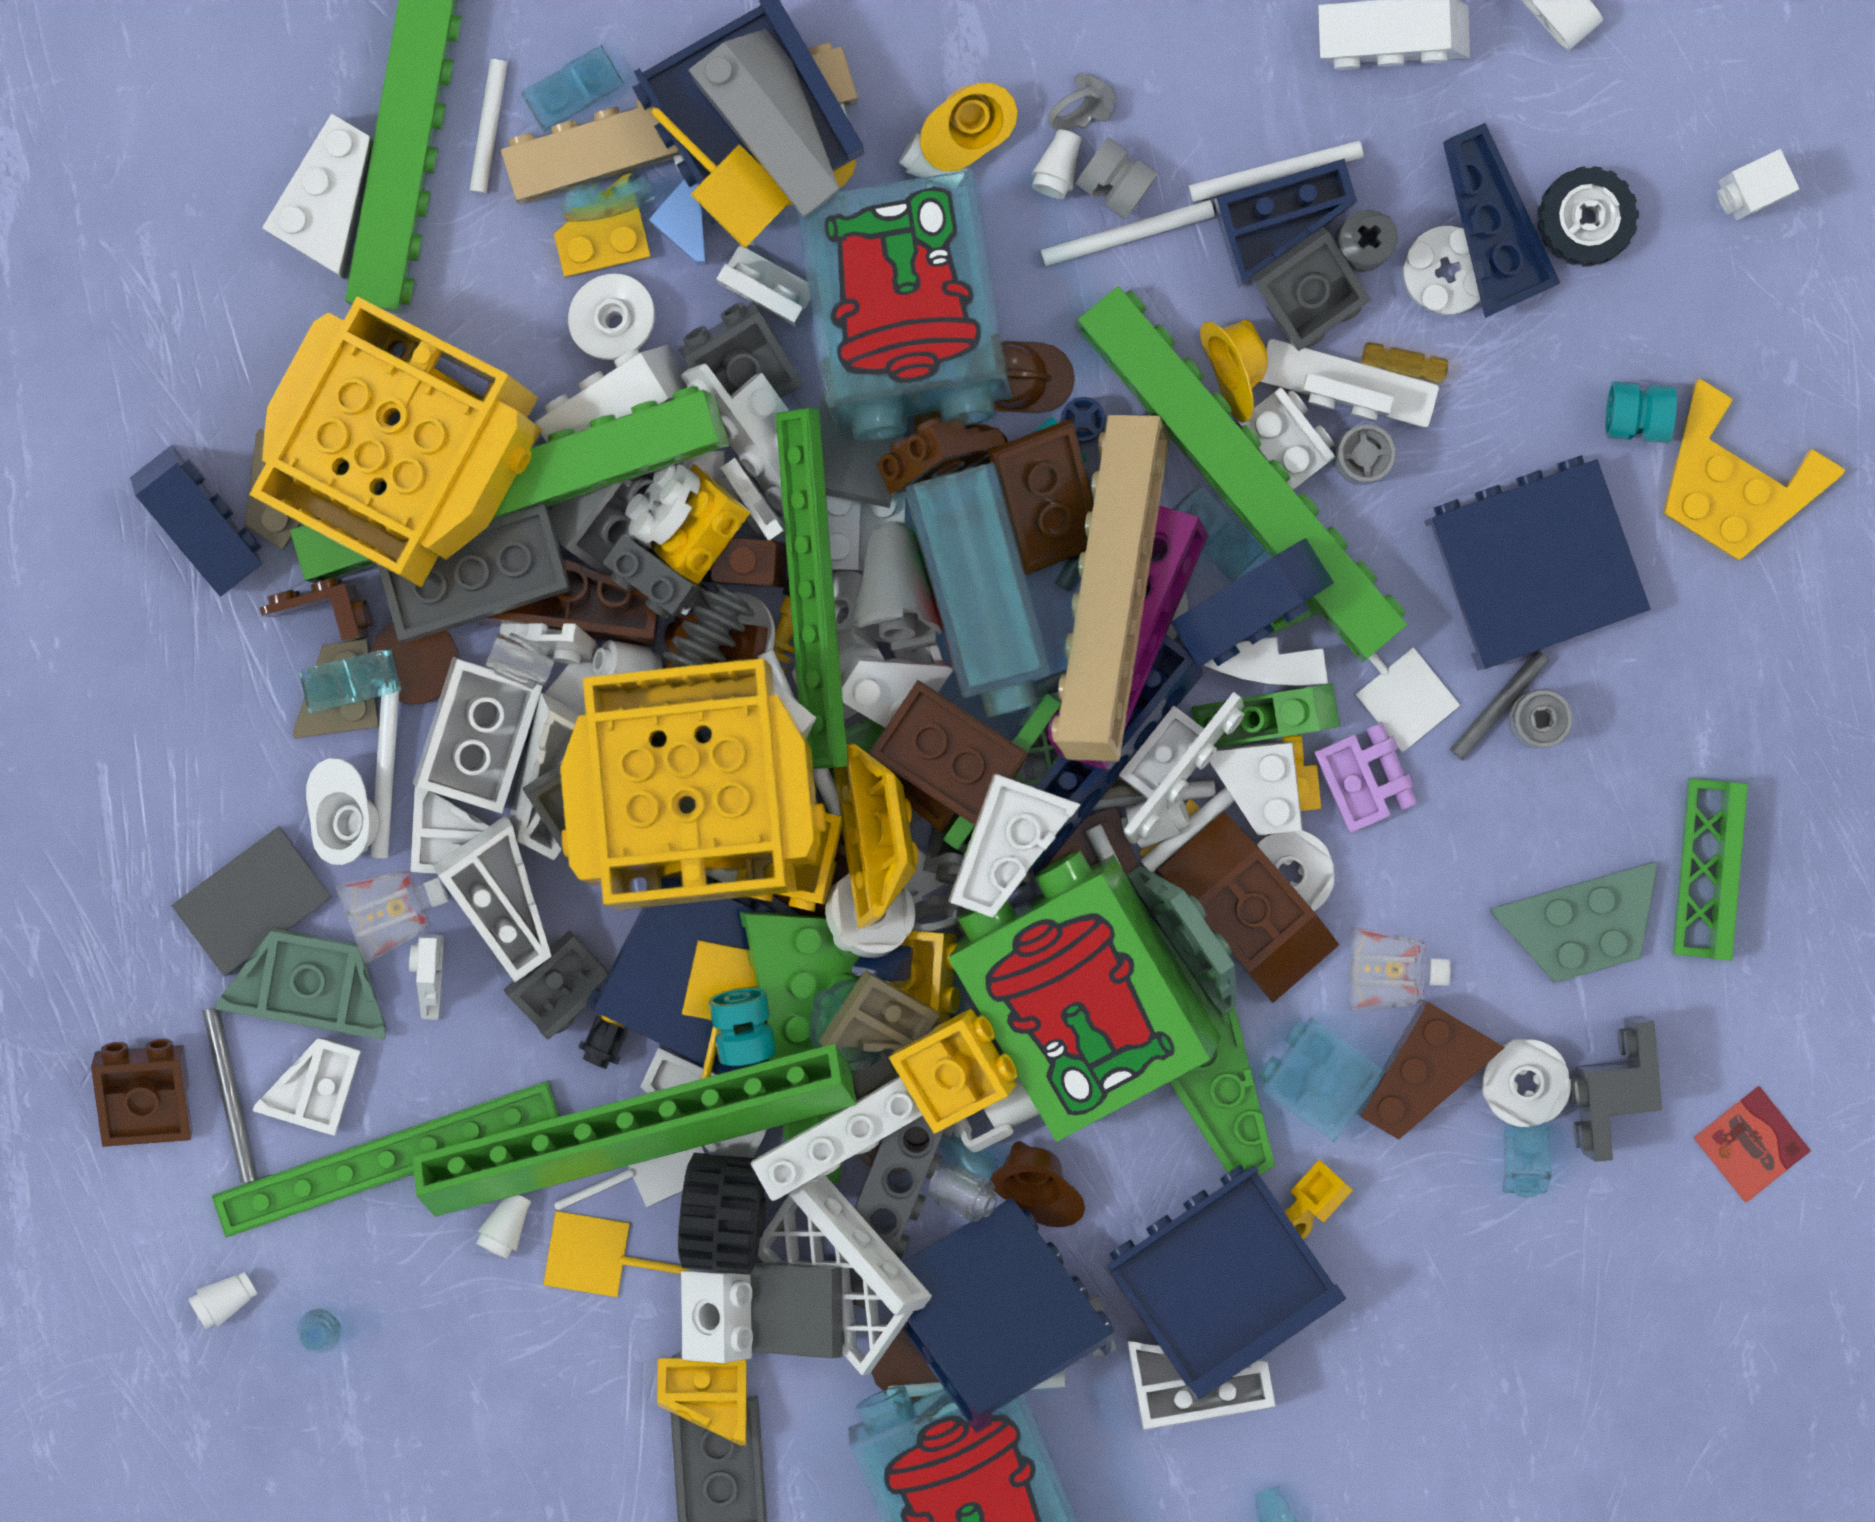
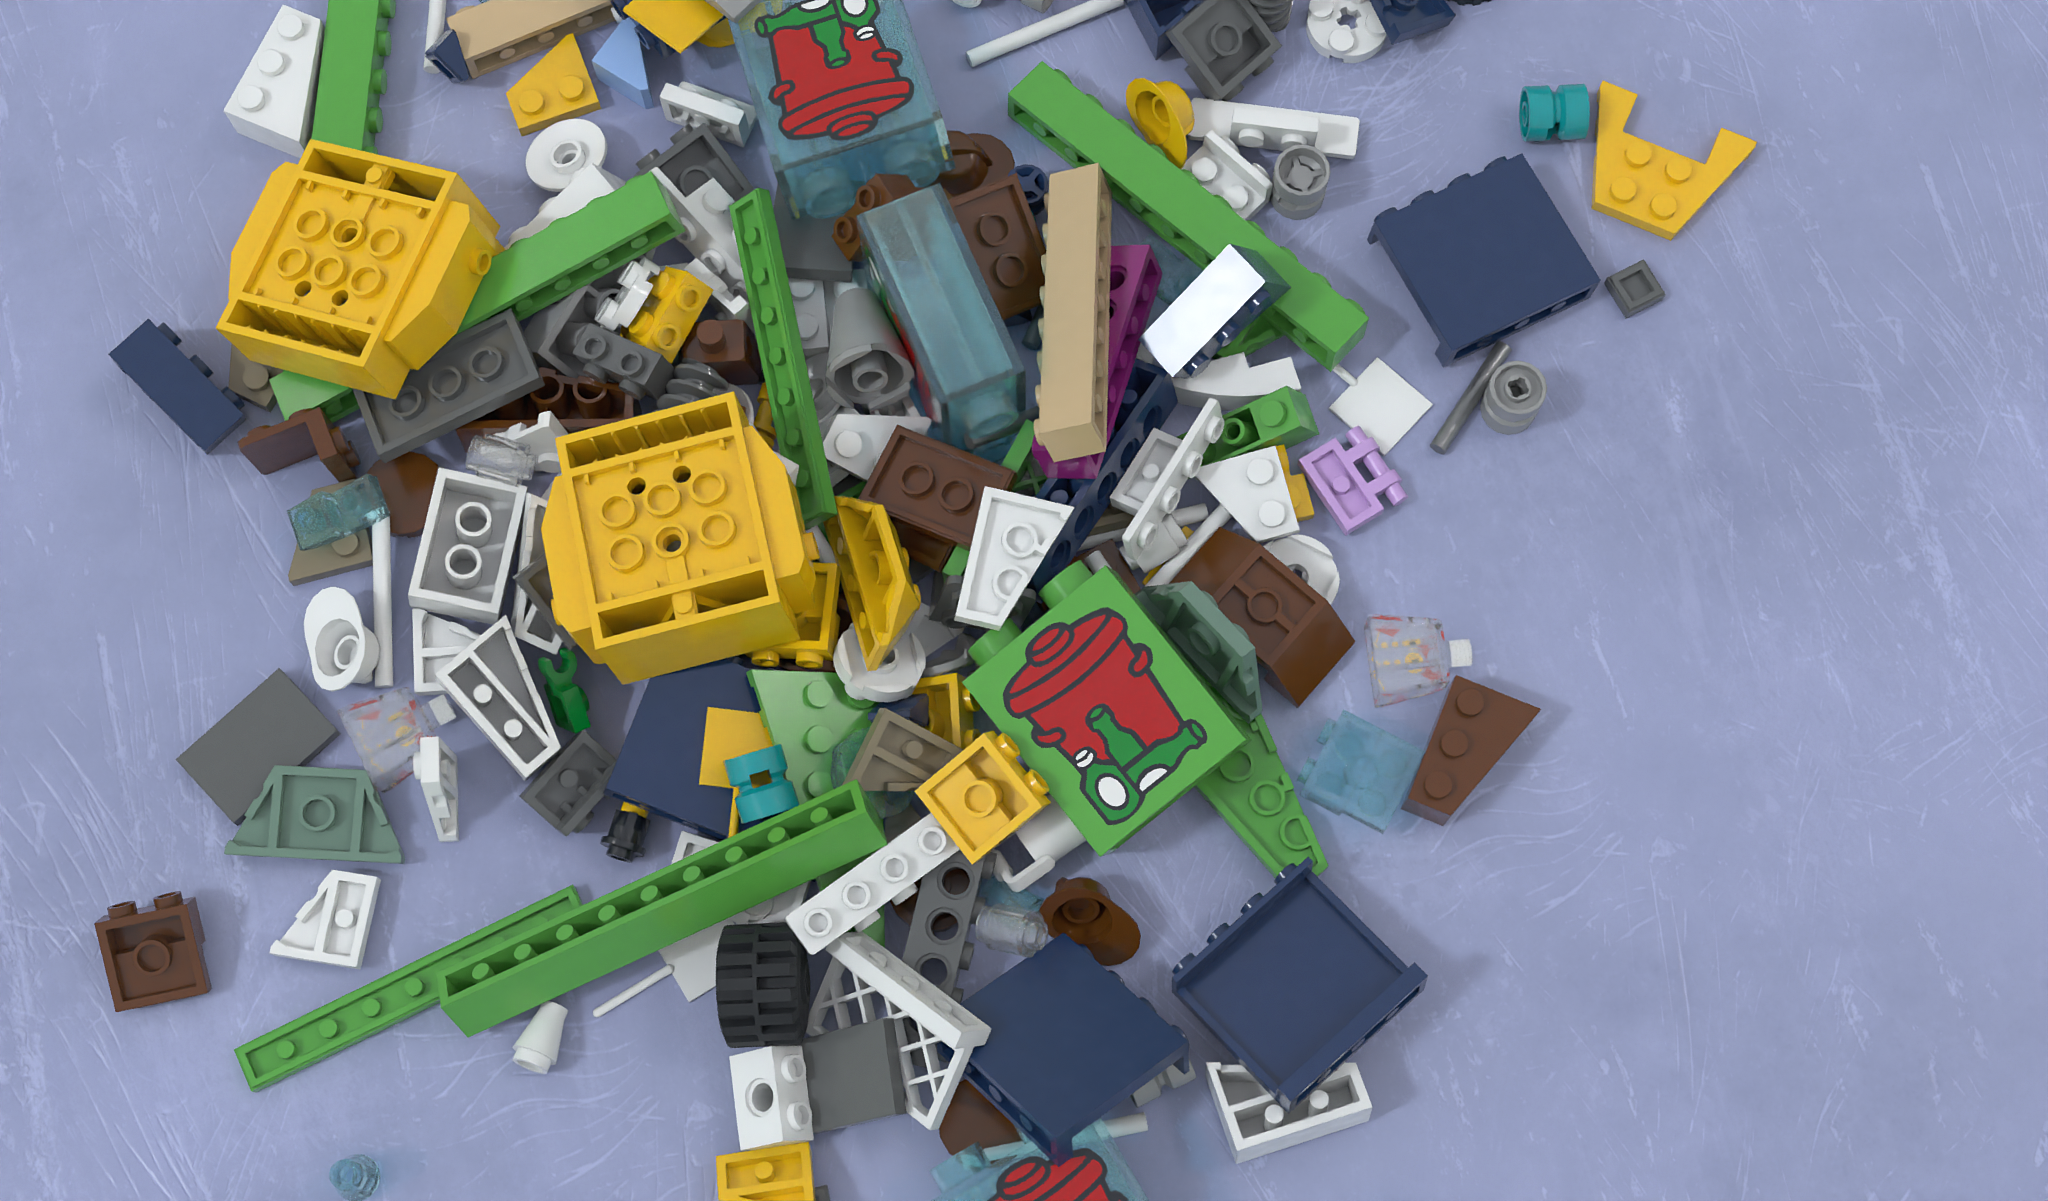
camera: 10 degrees left, 15 degrees down
(222, 1299) = (250, 1157): white cone -> none
(230, 1095) = (247, 943): flat silver bar -> none
(498, 187) = (448, 57): none -> dark blue slope
(558, 902) = (566, 699): none -> green plate
(590, 1253) = (635, 1060): yellow piece -> none
(591, 204) = (537, 56): clear light blue slope -> none
(1317, 1195) = (1378, 891): yellow plate -> none
(1405, 362) = (1324, 102): clear yellow axle -> none
(1527, 1160) = (1583, 829): clear light blue bracket -> none
(1531, 1107) = (1590, 740): white plate -> none
(1583, 923) = (1592, 591): sand green wing -> none
(1616, 1088) = (1662, 736): dark grey bracket -> none
(1688, 611) = (1634, 288): none -> dark grey tile
(1726, 870) = (1724, 516): bright green fence -> none
(1752, 1144) = (1806, 785): clear red sticker -> none

